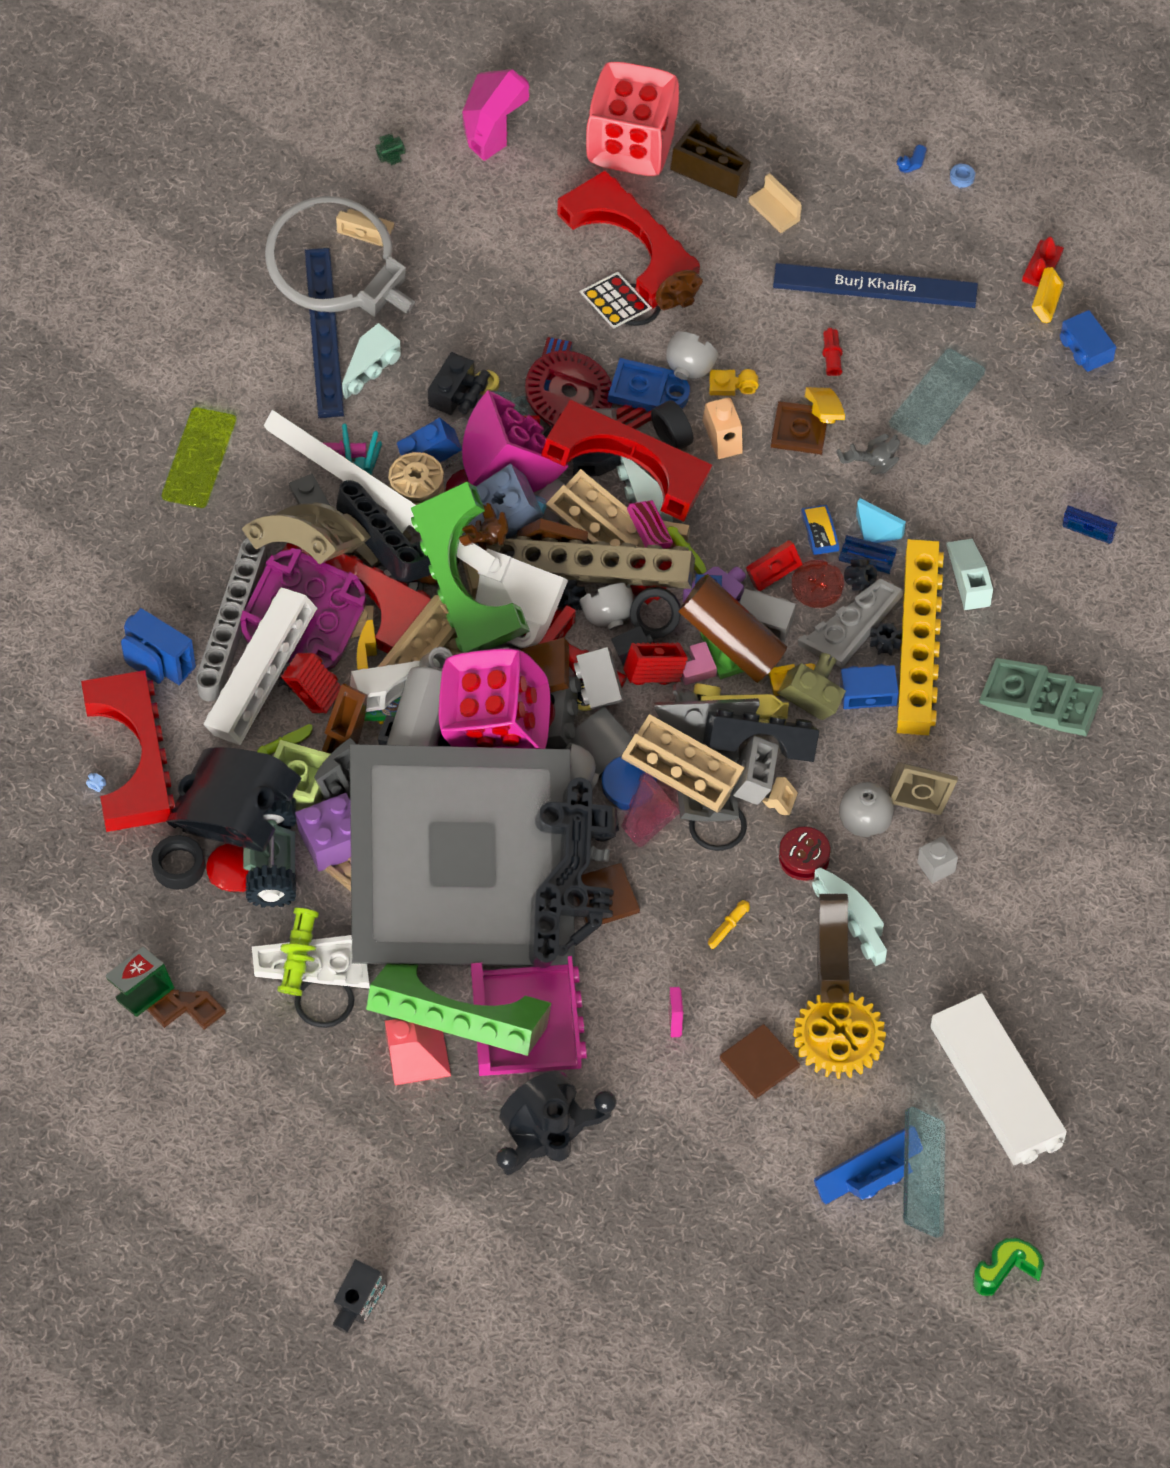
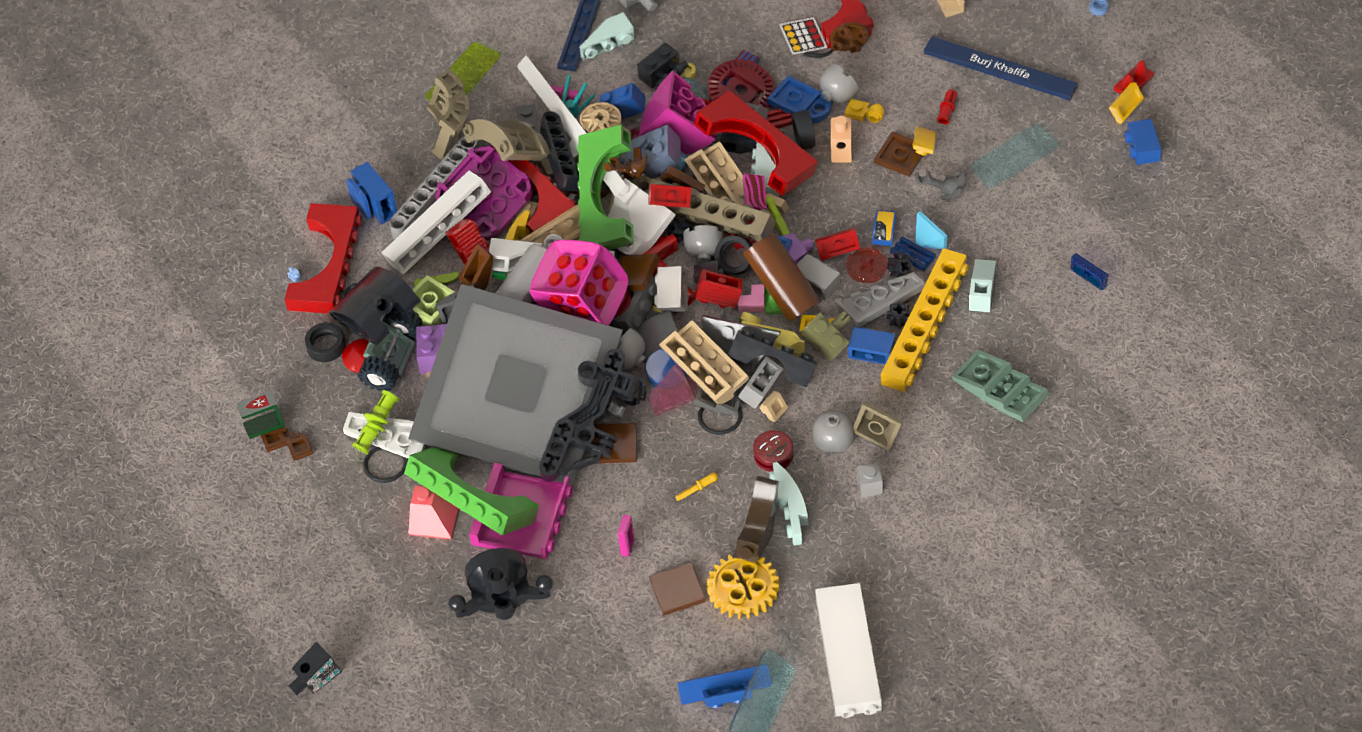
camera: 25 degrees right, 5 degrees down
(218, 537) = (449, 113): none -> dark tan fence
(555, 558) = (669, 195): none -> red tile

